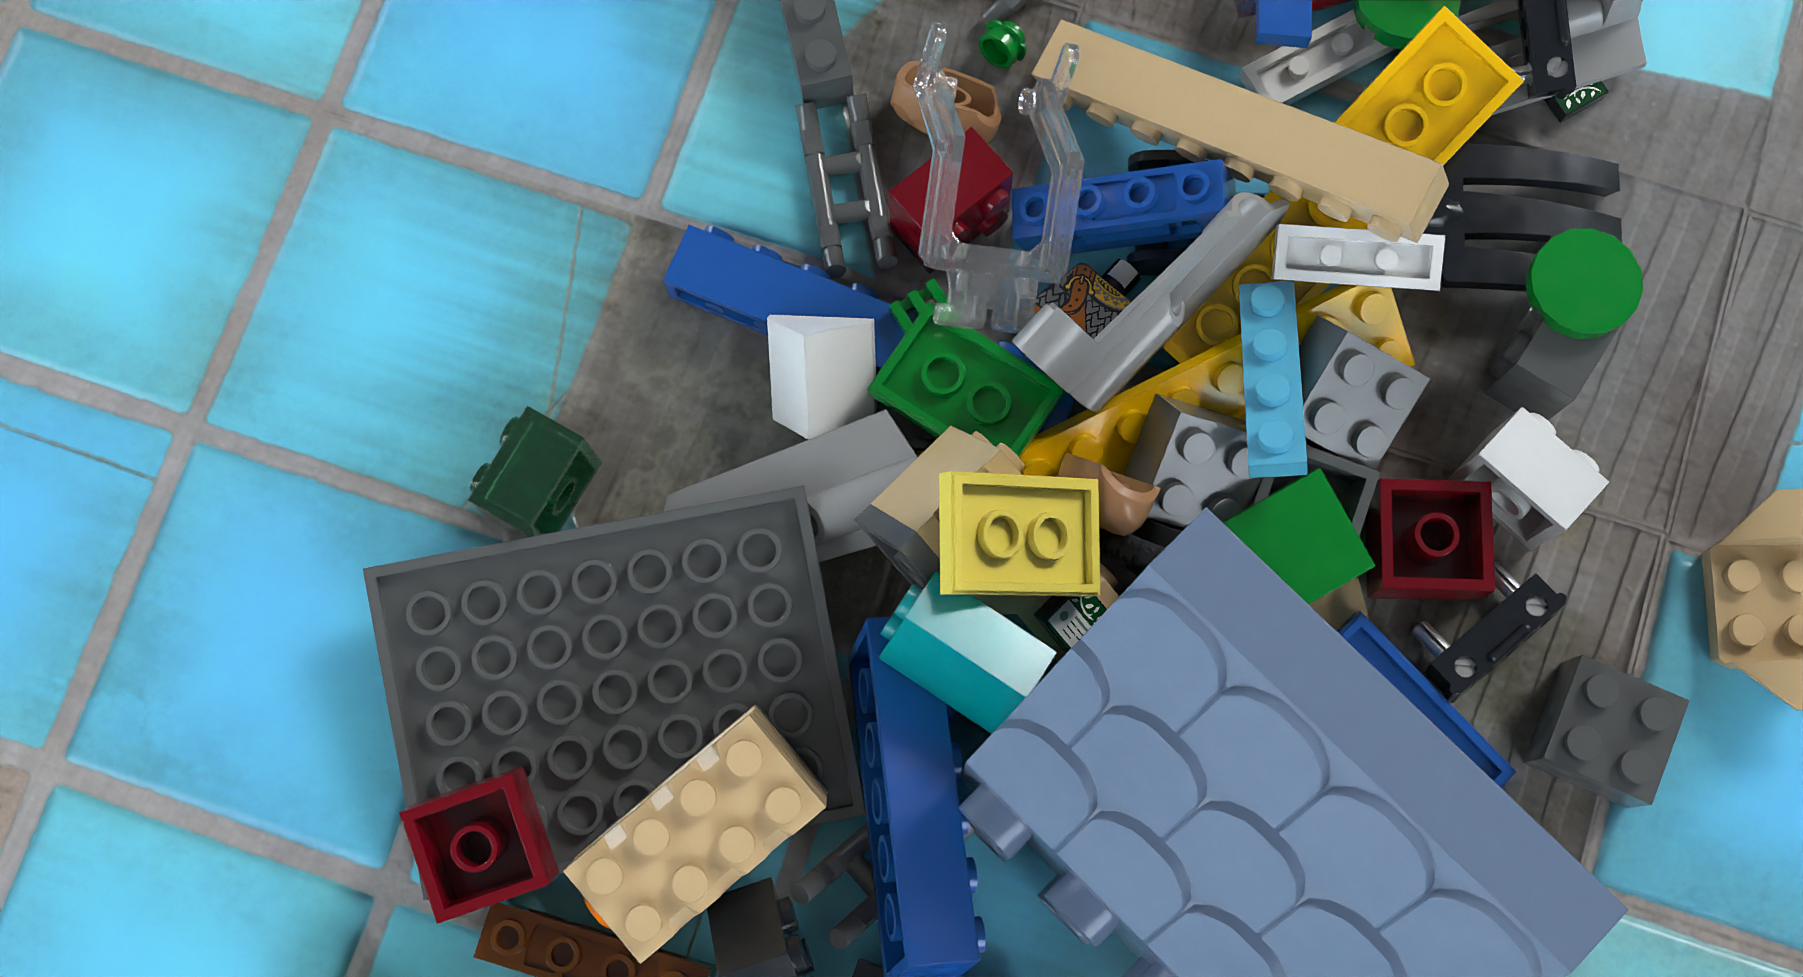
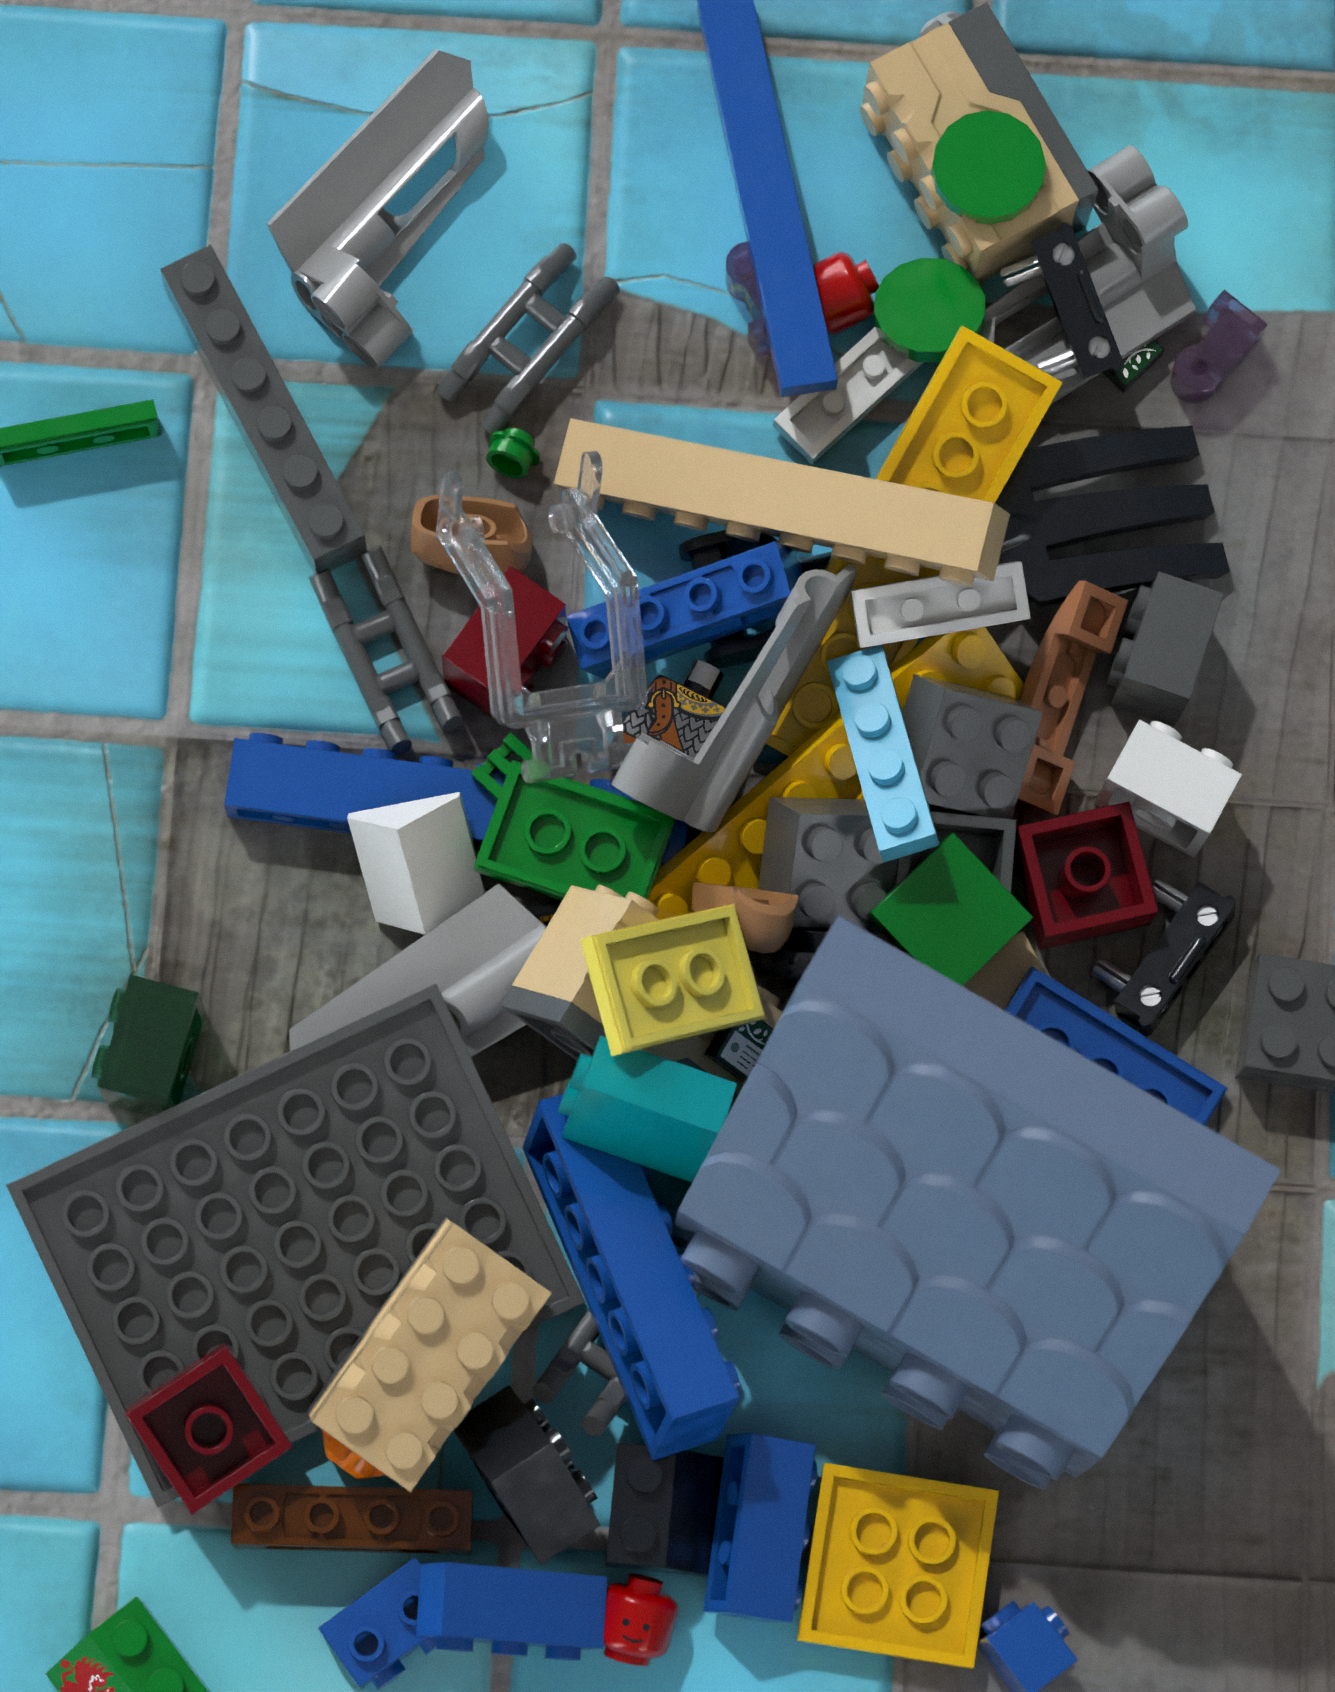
camera: 25 degrees left, 0 degrees up
(1445, 355) = (1056, 683): none -> nougat slope
(1584, 283) = (1171, 578): green tile -> none
(1643, 113) = (1207, 365): none -> clear purple leg

